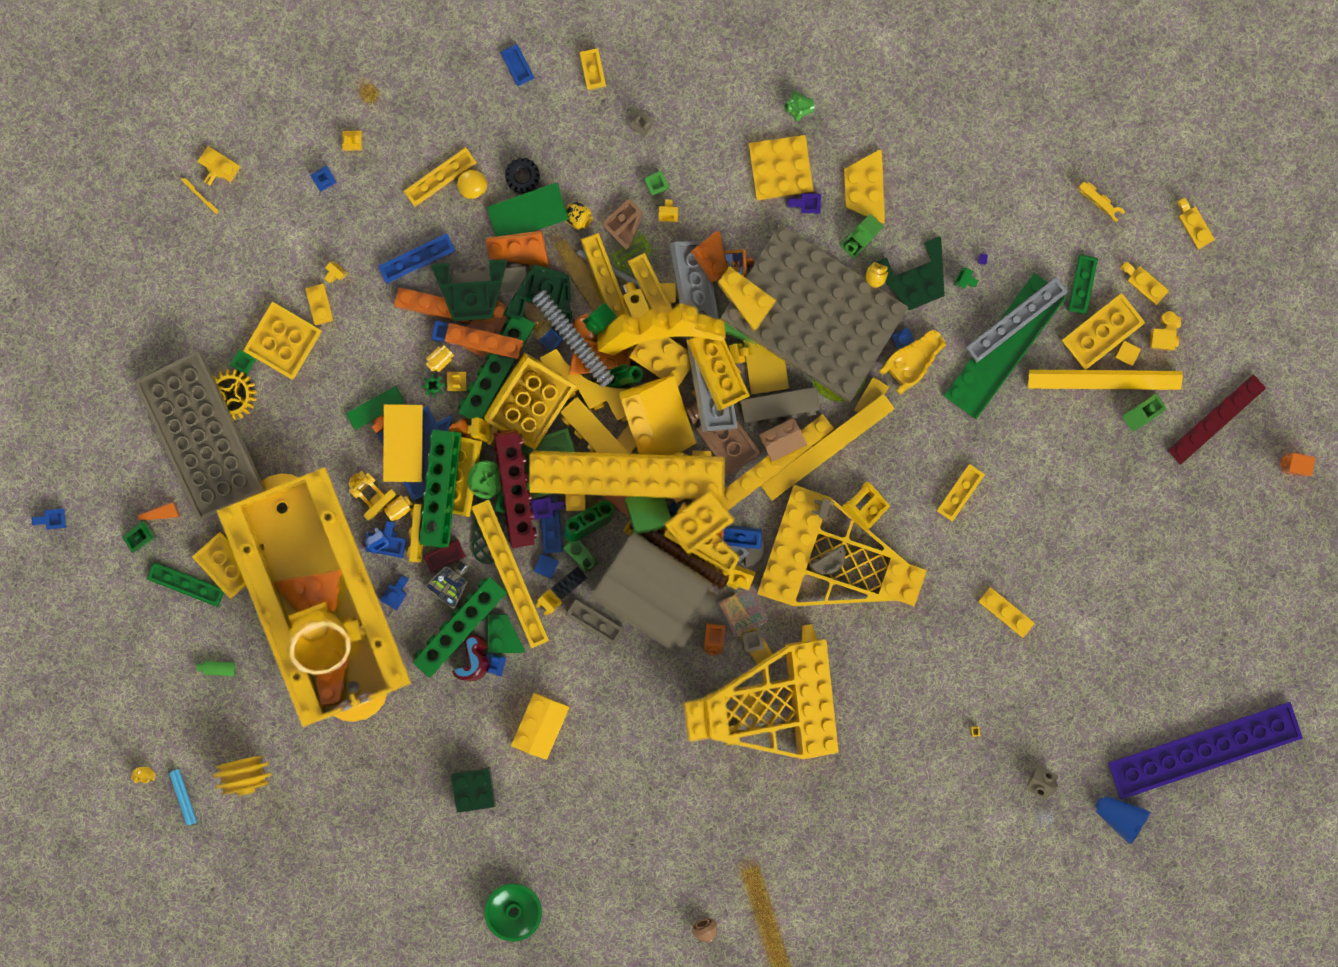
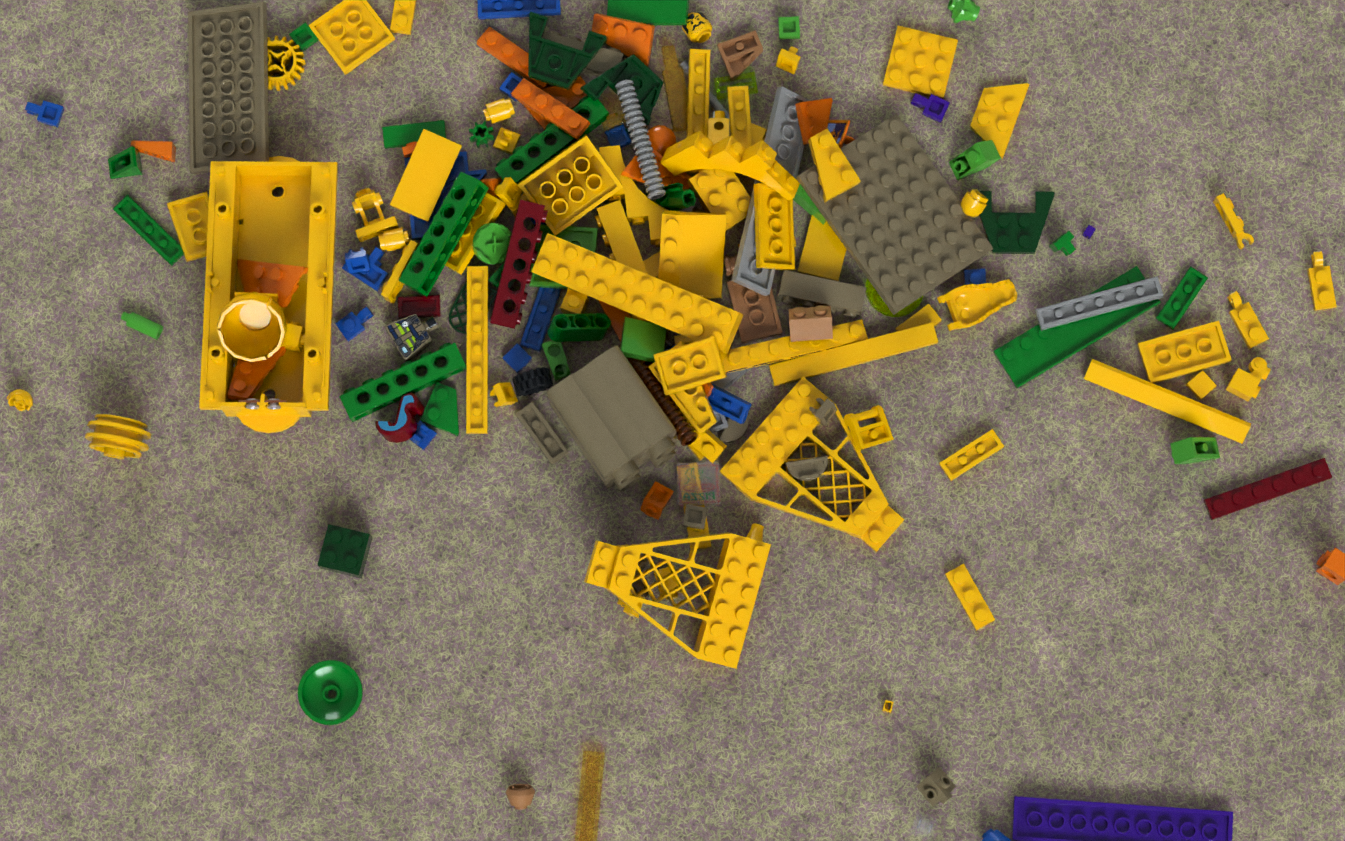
camera: 30 degrees right, 10 degrees down
(183, 797) = (50, 437): medium azure axle -> none
(540, 726) = (440, 514): yellow slope -> none
(544, 507) = (540, 297): dark purple plate -> none
(599, 319) = (674, 131): green brick -> none
(739, 352) = (803, 224): yellow tile -> none

